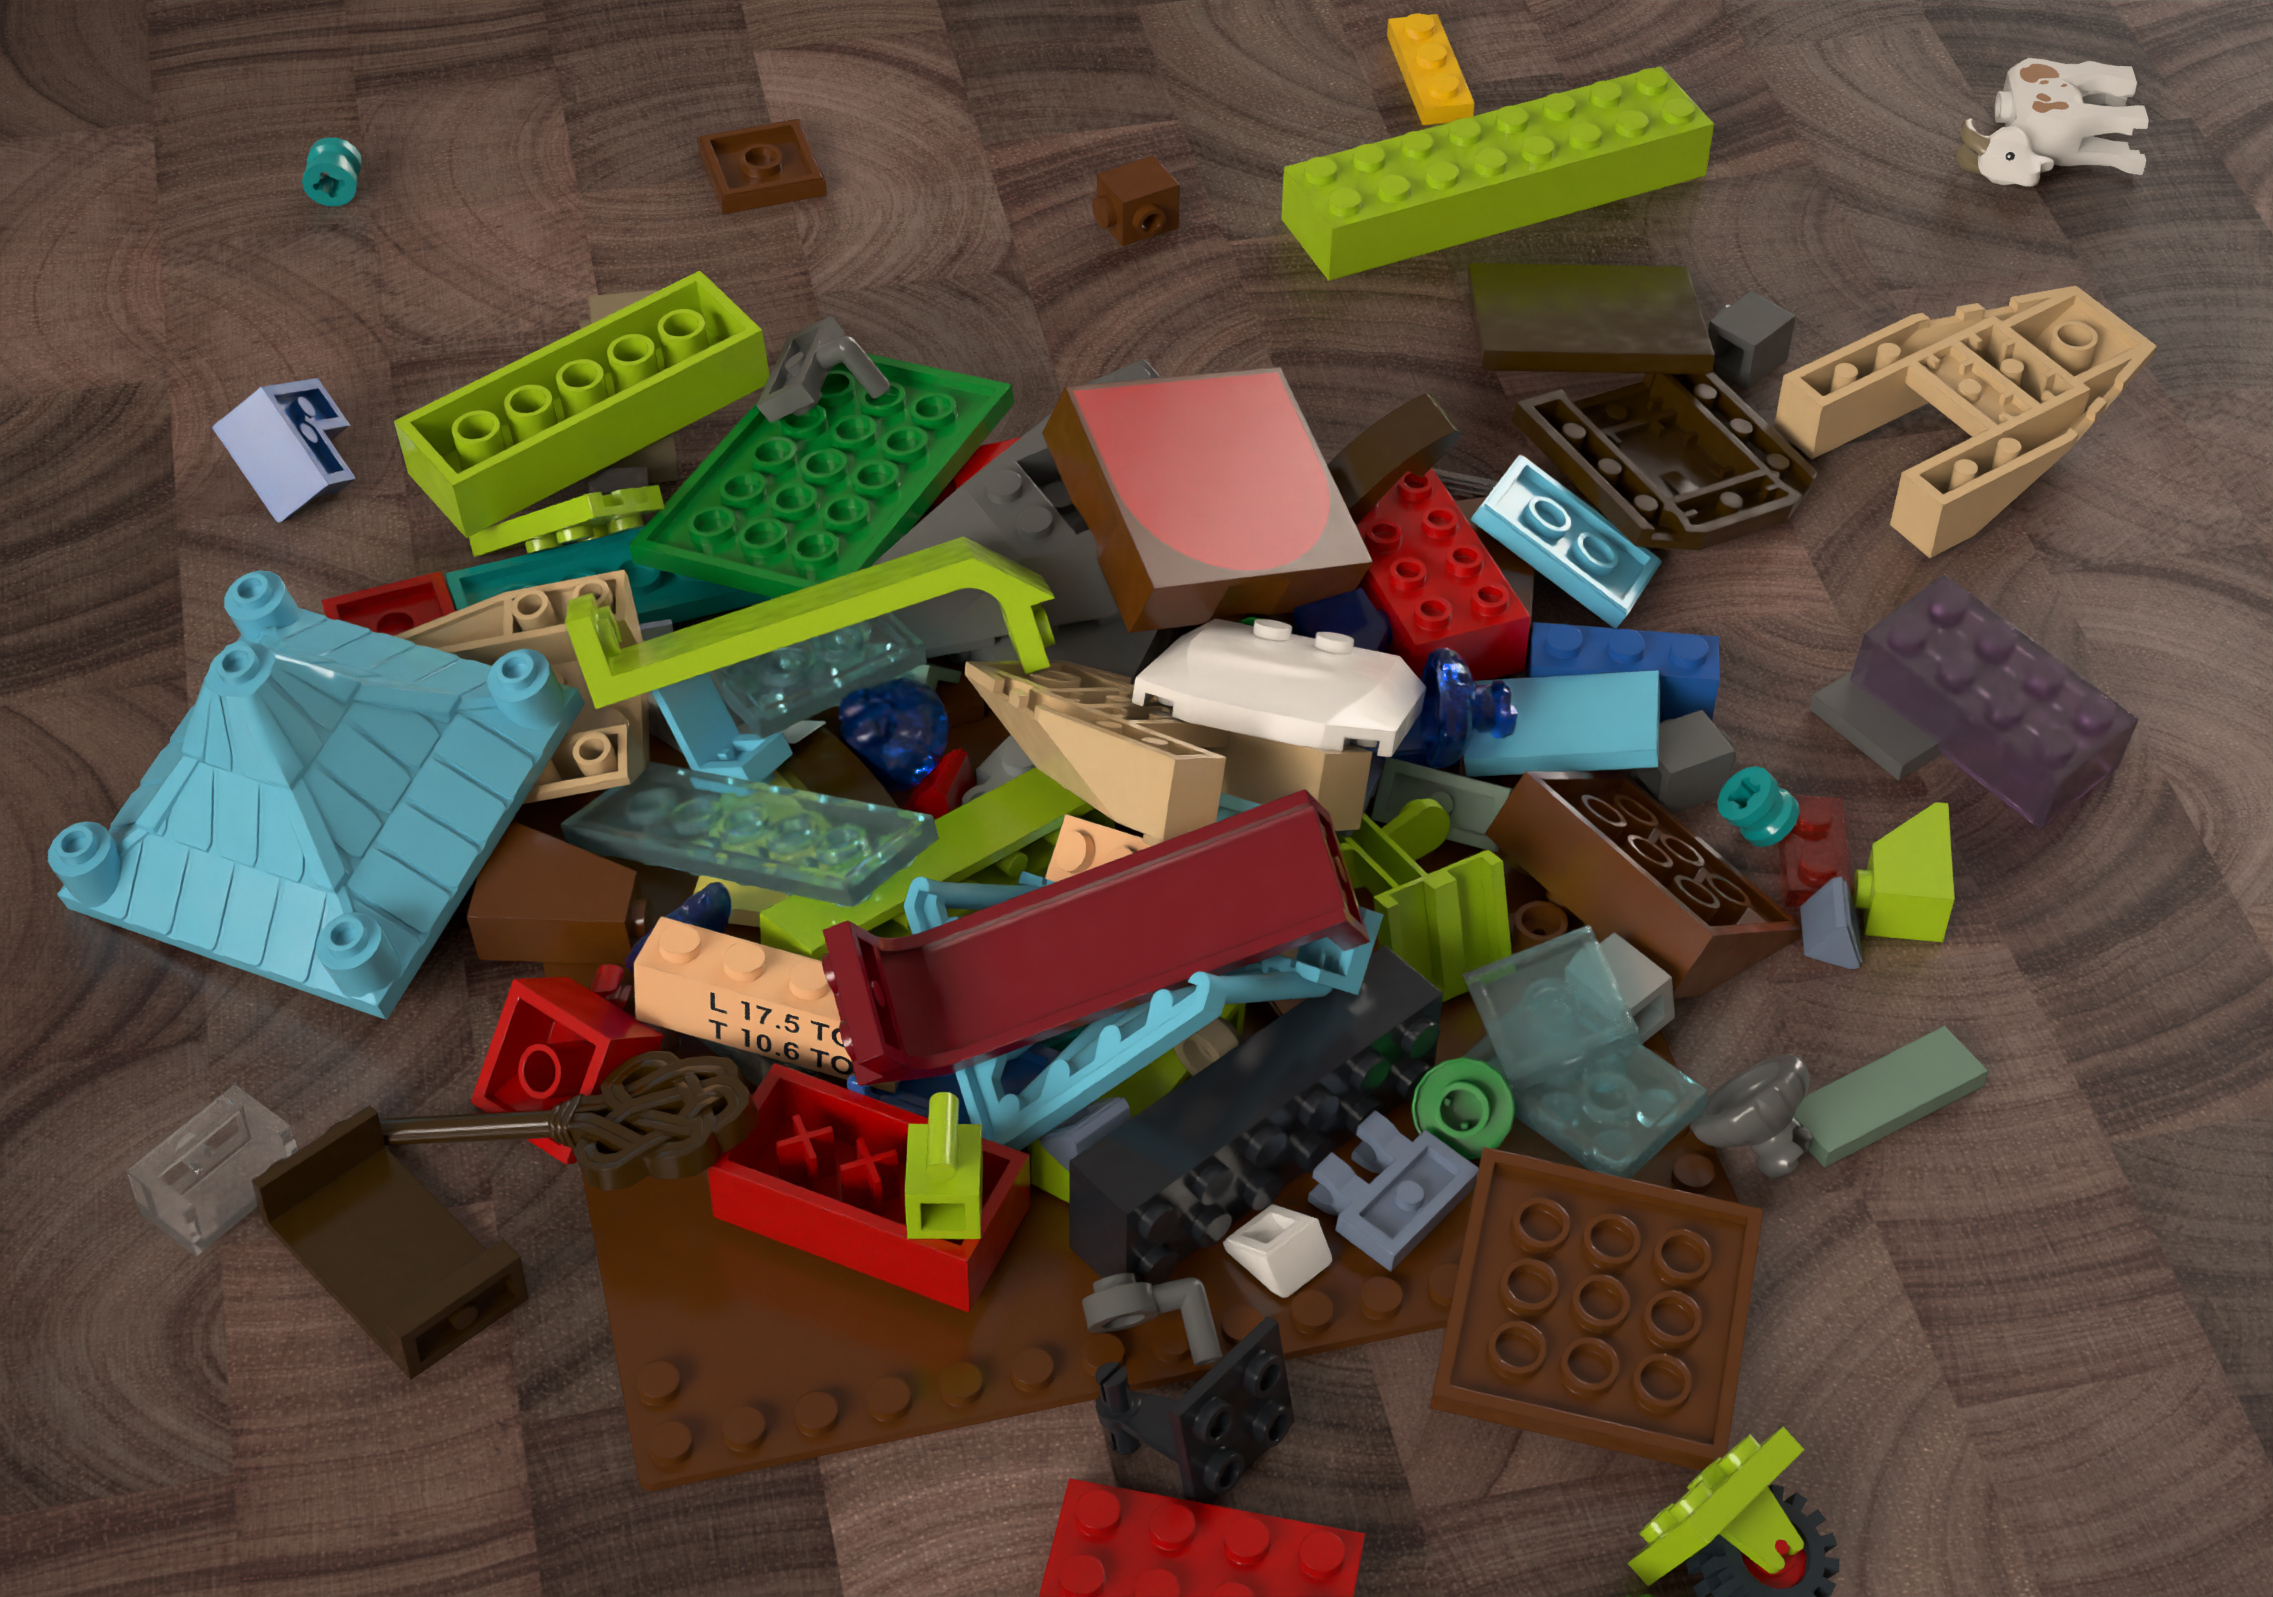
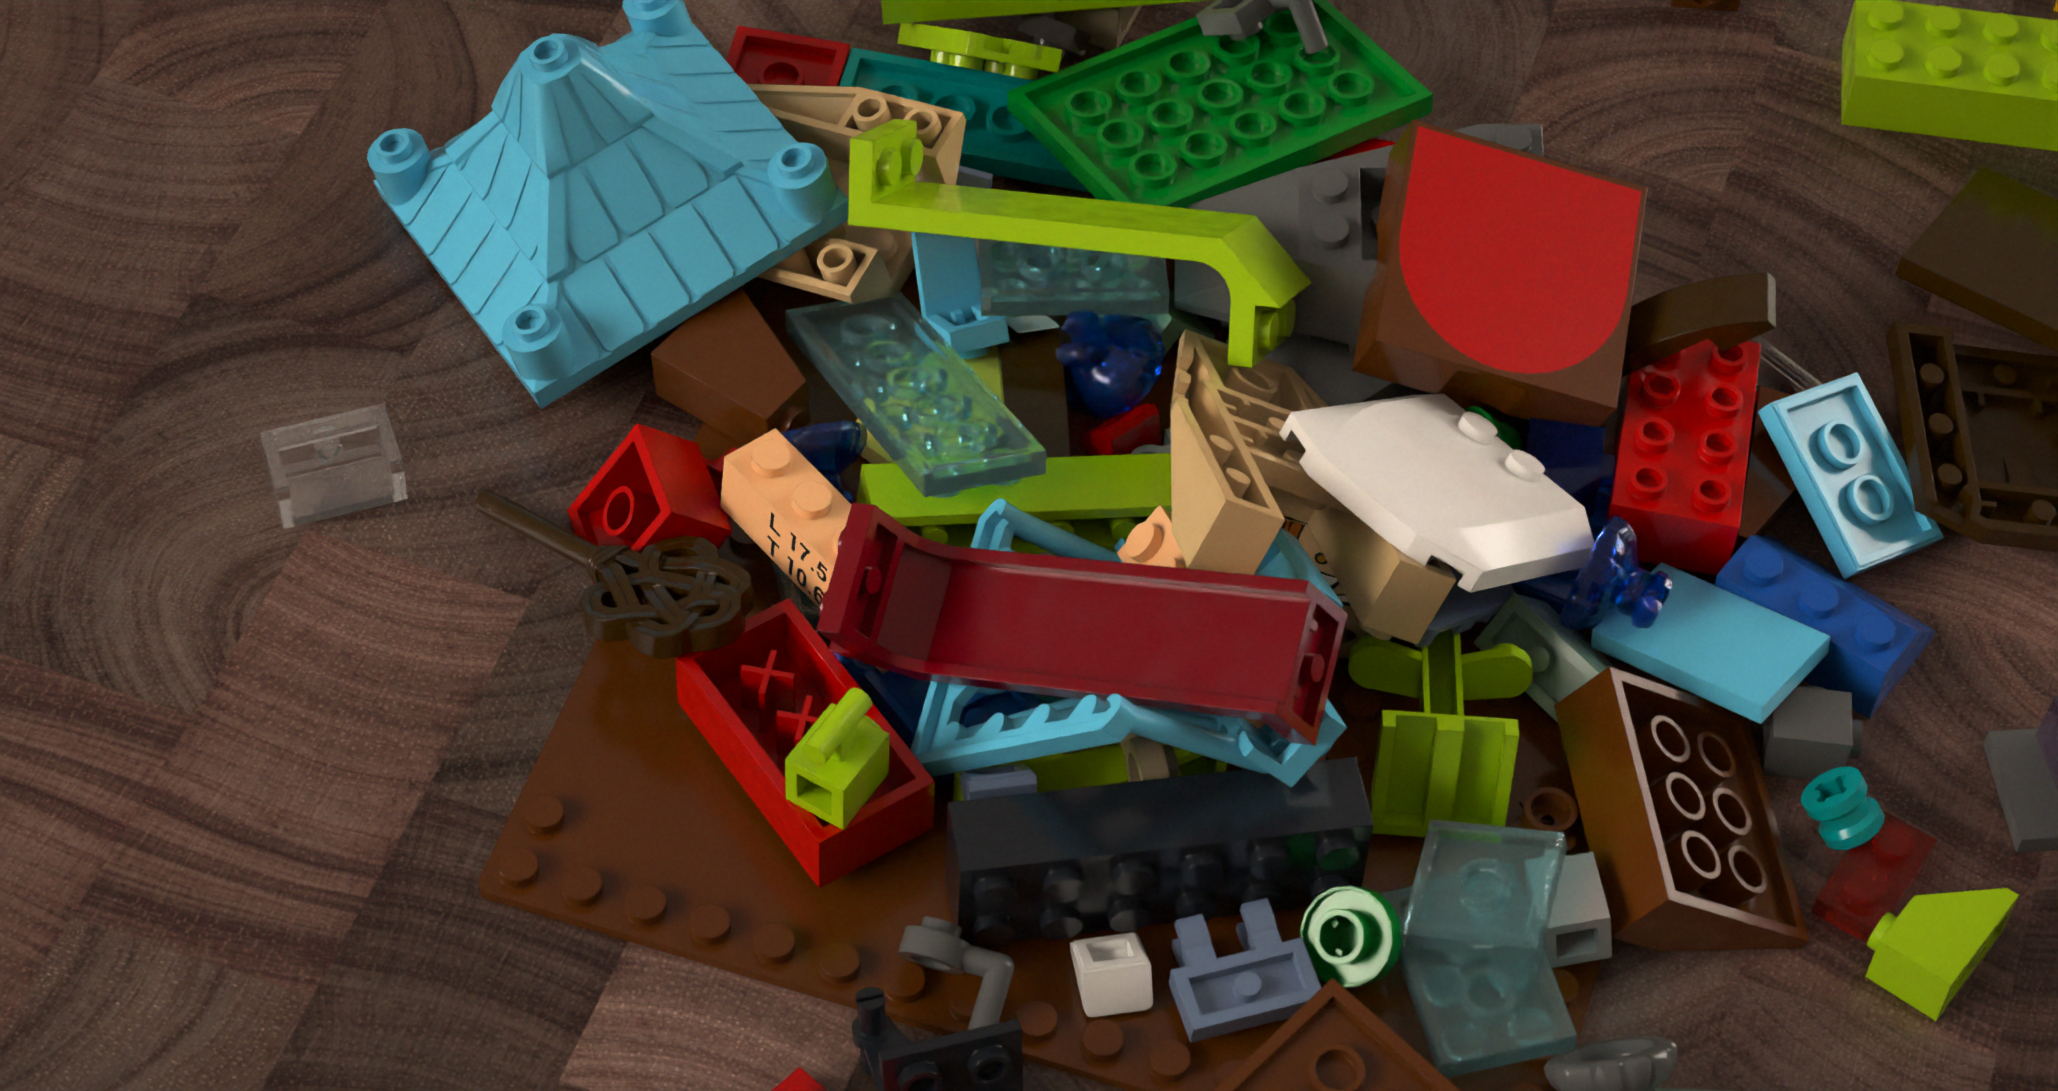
camera: 30 degrees right, 5 degrees up
(386, 1245) = (421, 591): dark brown panel -> none
(1832, 926) = (1832, 954): sand blue slope -> none

